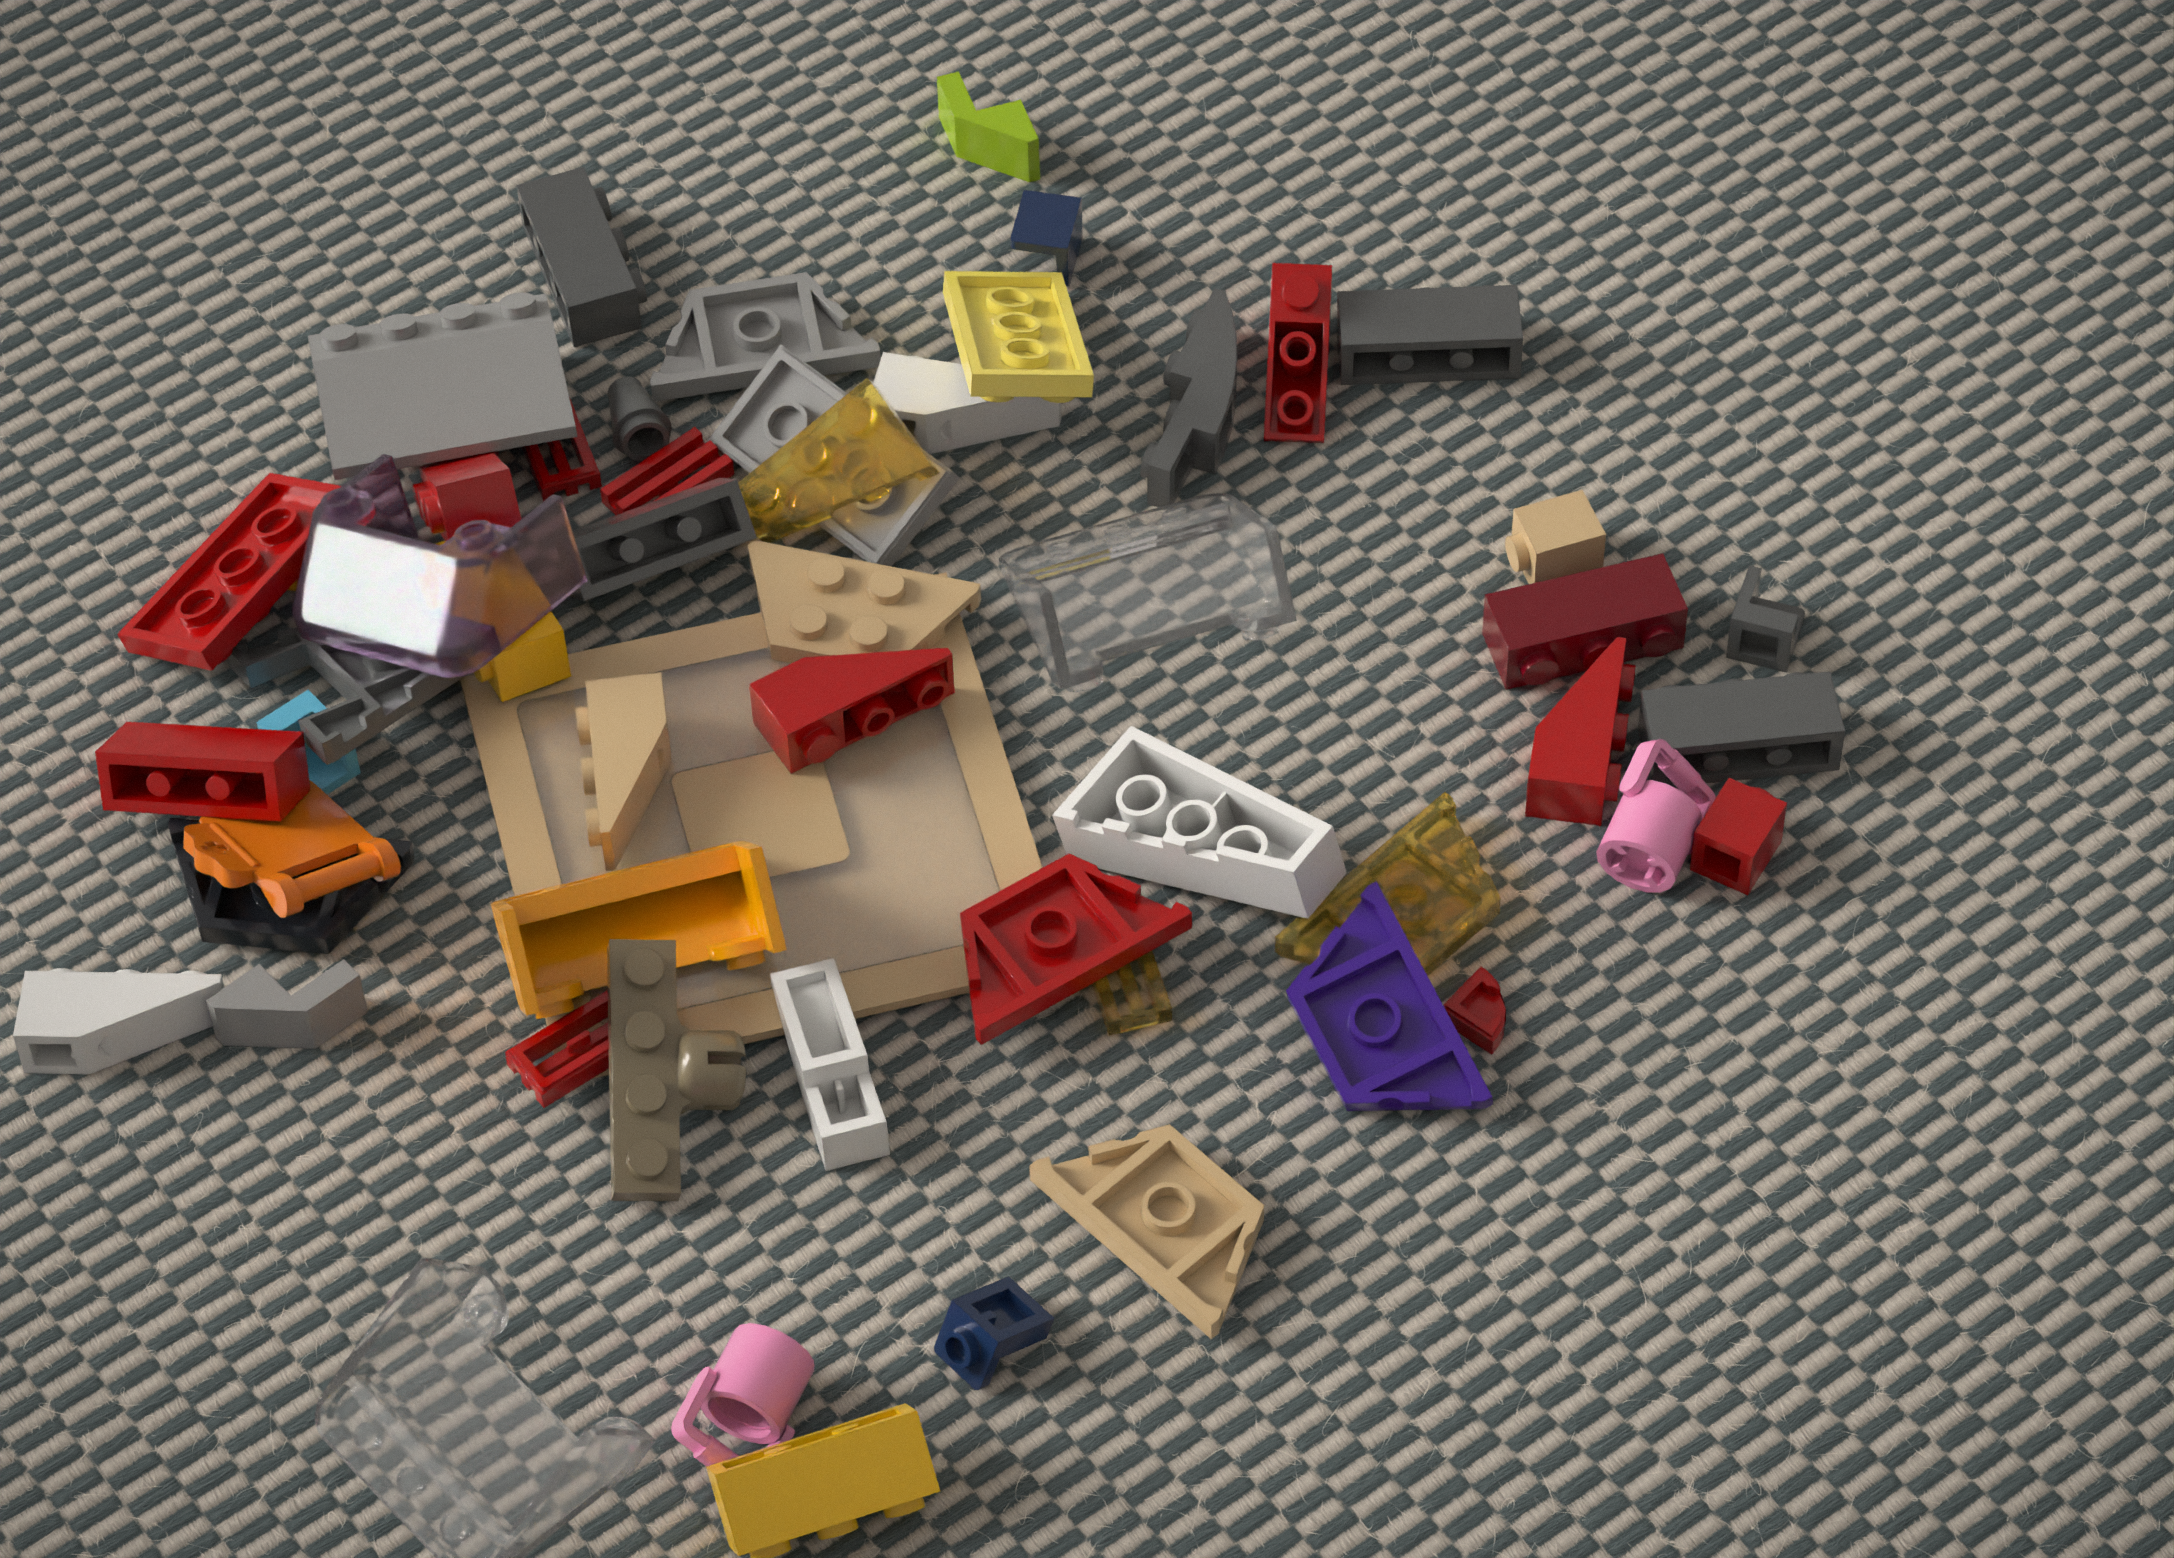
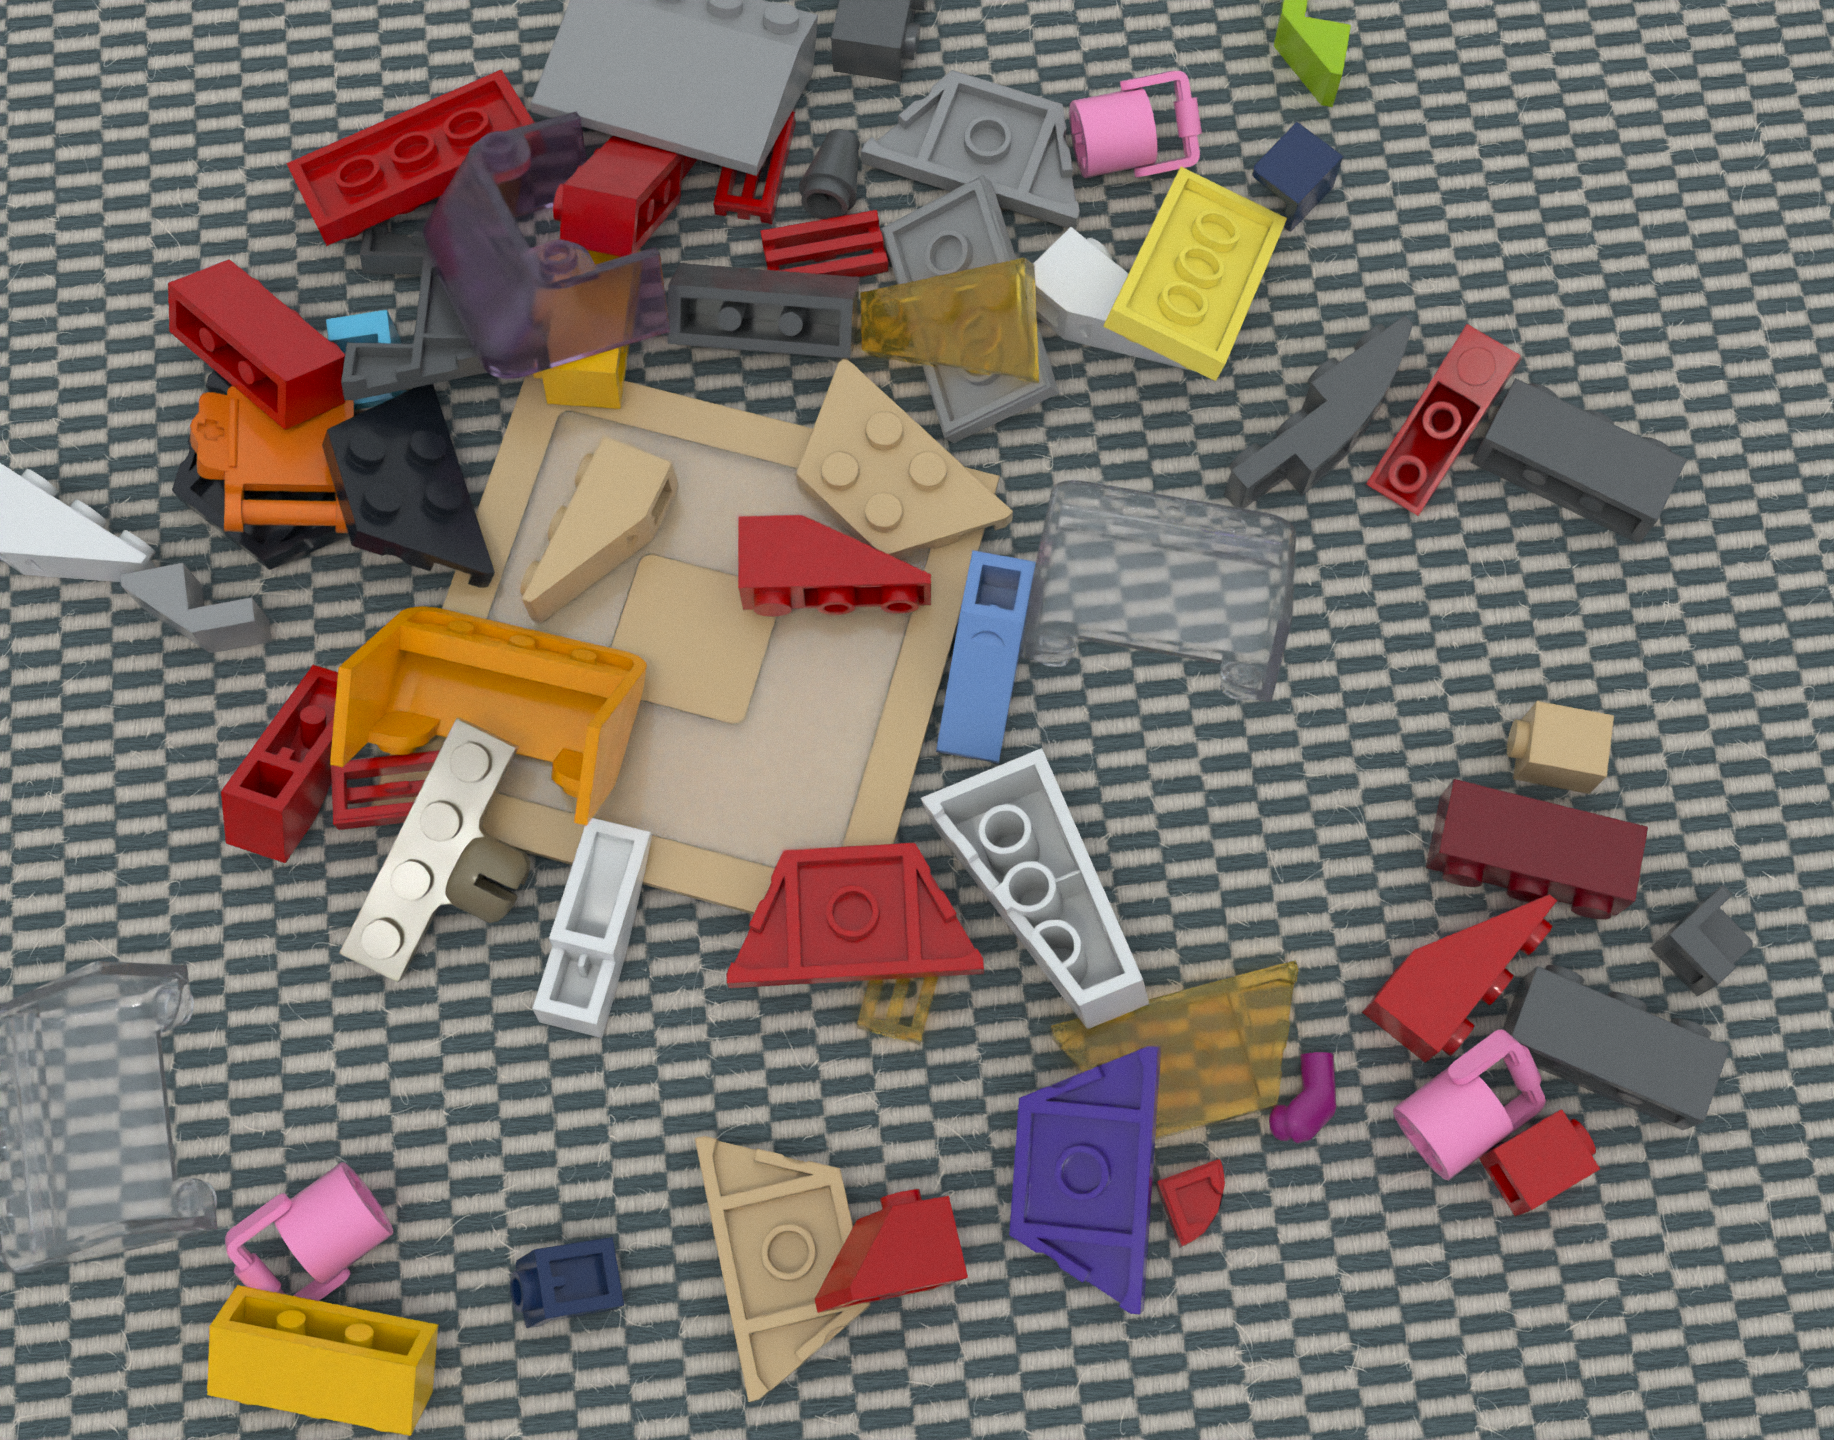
camera: 30 degrees right, 20 degrees up
(426, 815) = (406, 486): none -> black wing
(468, 1080) = (285, 773): none -> red slope
(877, 264) = (1120, 131): none -> bright pink piece
(1030, 695) = (985, 656): none -> medium blue slope
(1264, 1152) = (895, 1253): none -> red slope
(1530, 891) = (1312, 1106): none -> magenta arm

